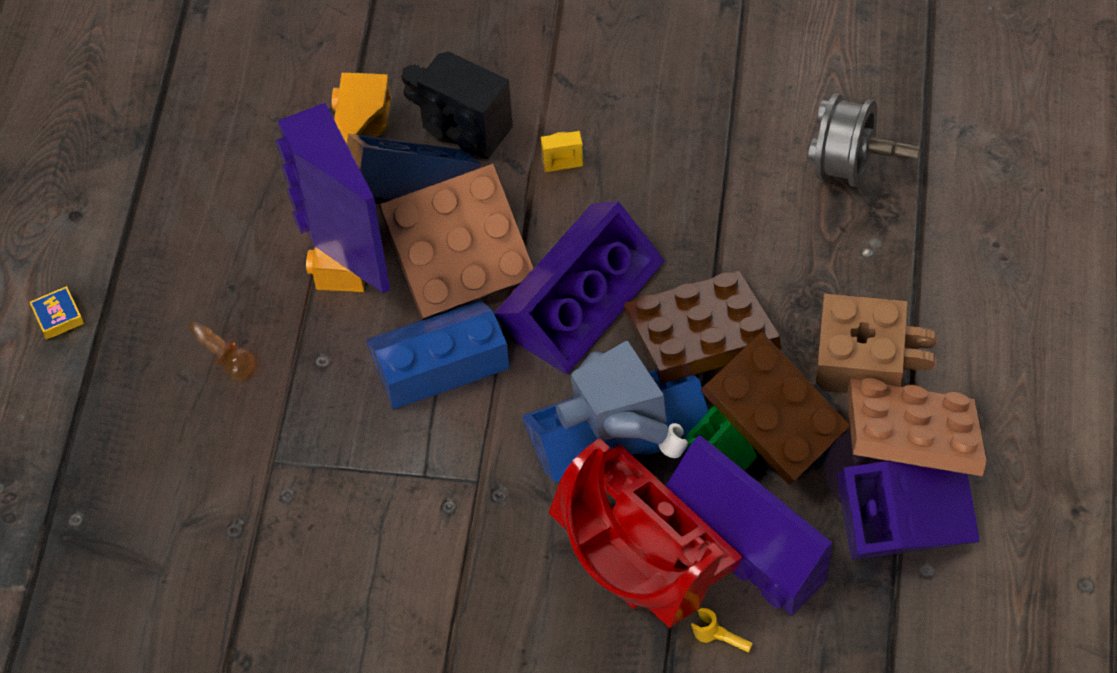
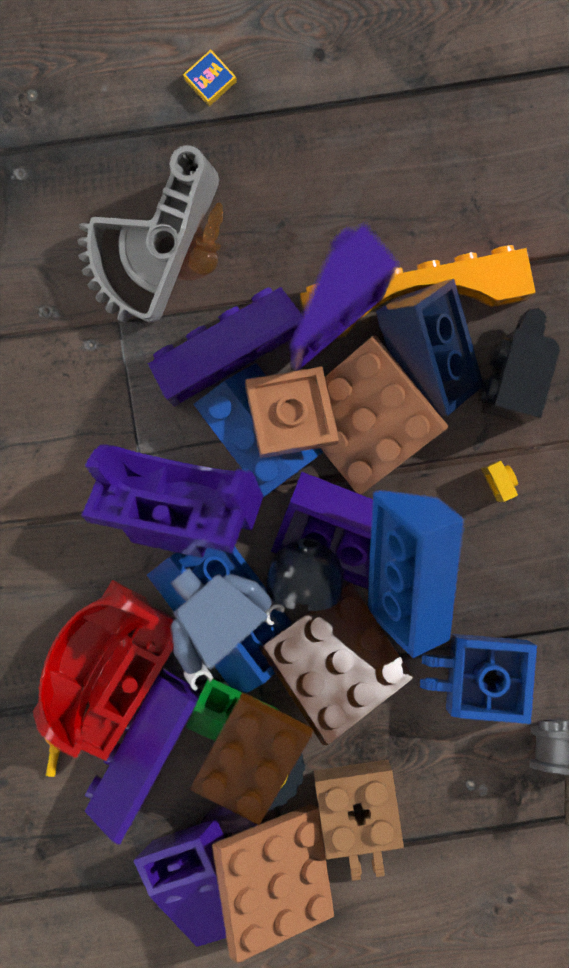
camera: 75 degrees right, 30 degrees up
(184, 356) = (178, 215): none -> light grey arm
(339, 351) = (226, 346): none -> dark purple slope
(429, 292) = (291, 412): none -> nougat plate
(491, 419) = (170, 501): none -> dark purple piece
(597, 321) = (305, 575): none -> black cylinder
(621, 219) = (413, 568): none -> blue slope
(754, 199) = (470, 658): none -> blue hinge

